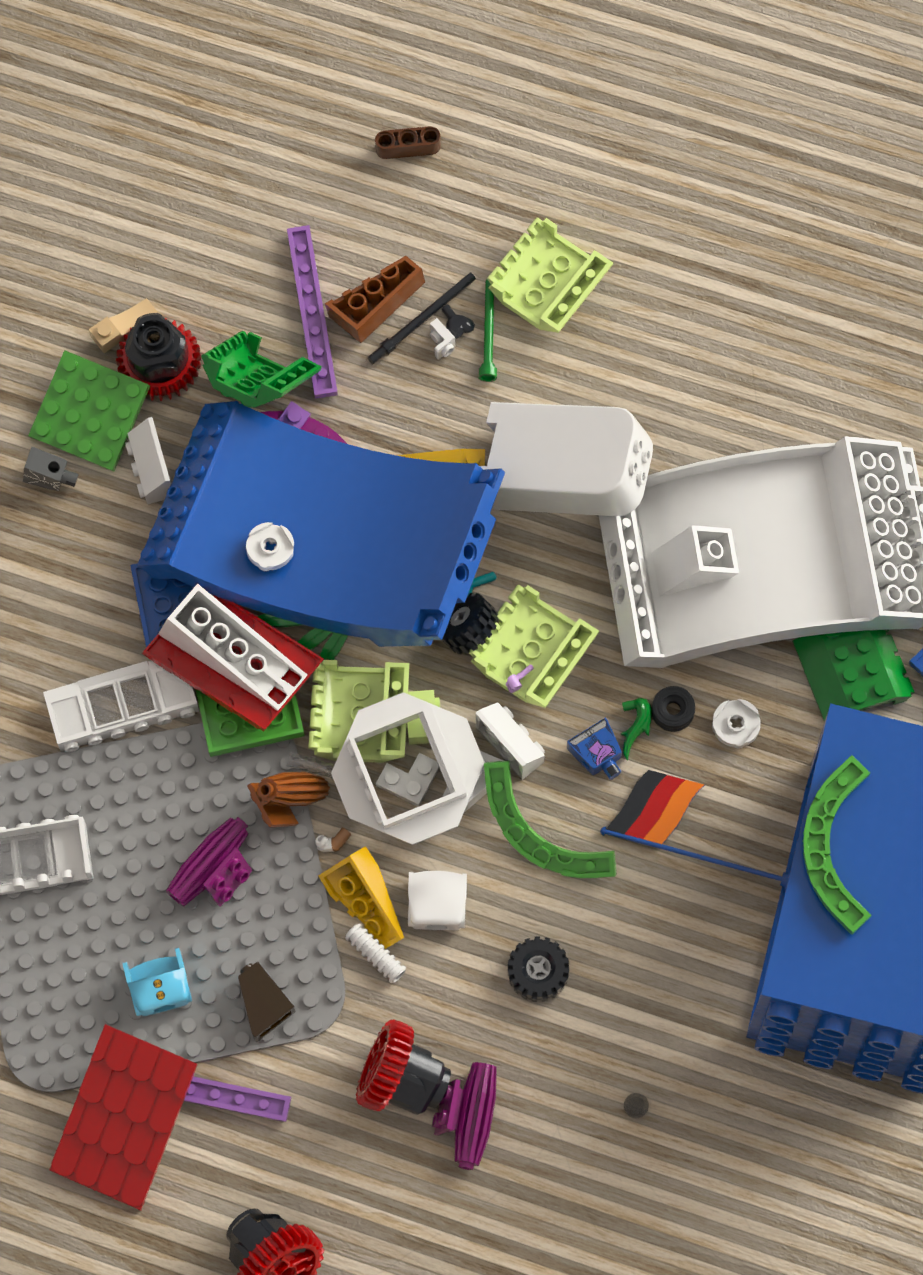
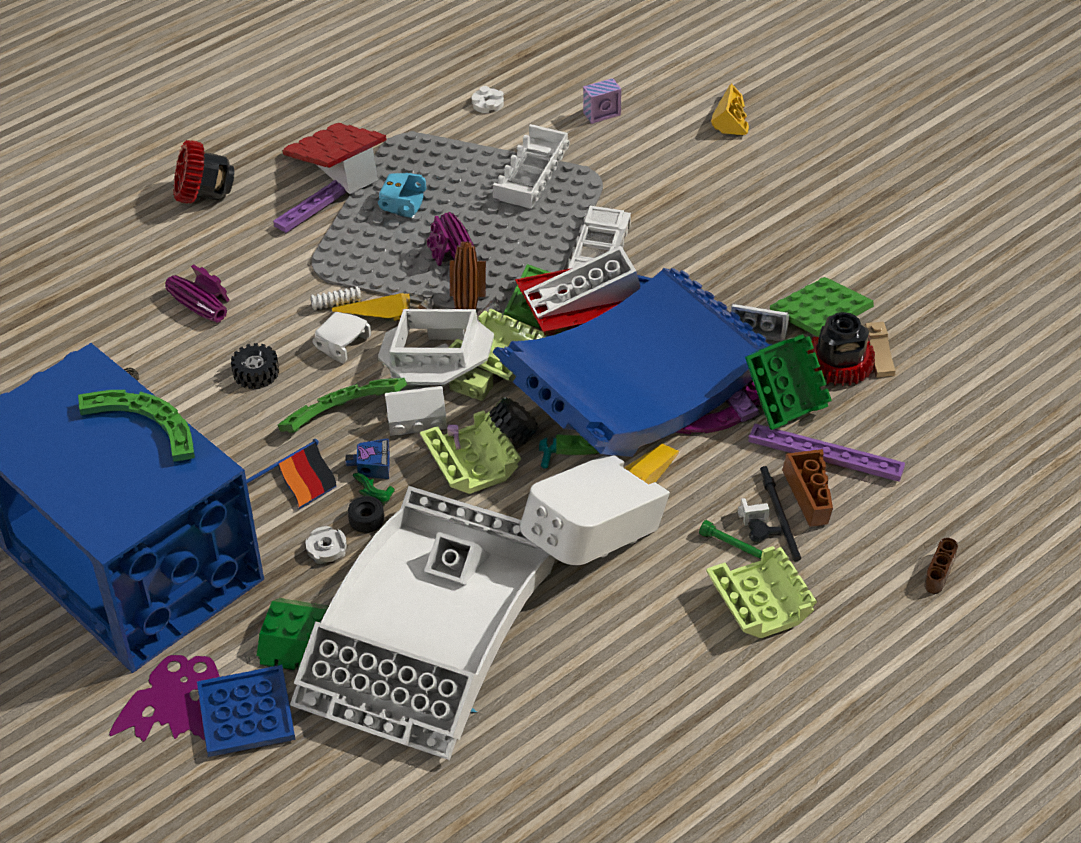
camera: 120 degrees right, 25 degrees down
(47, 470) = (789, 269): dark grey torso -> none
(263, 1000) = (352, 233): dark brown slope -> none
(267, 559) = (640, 333): white plate -> none
(401, 1073) = (247, 265): piece -> none

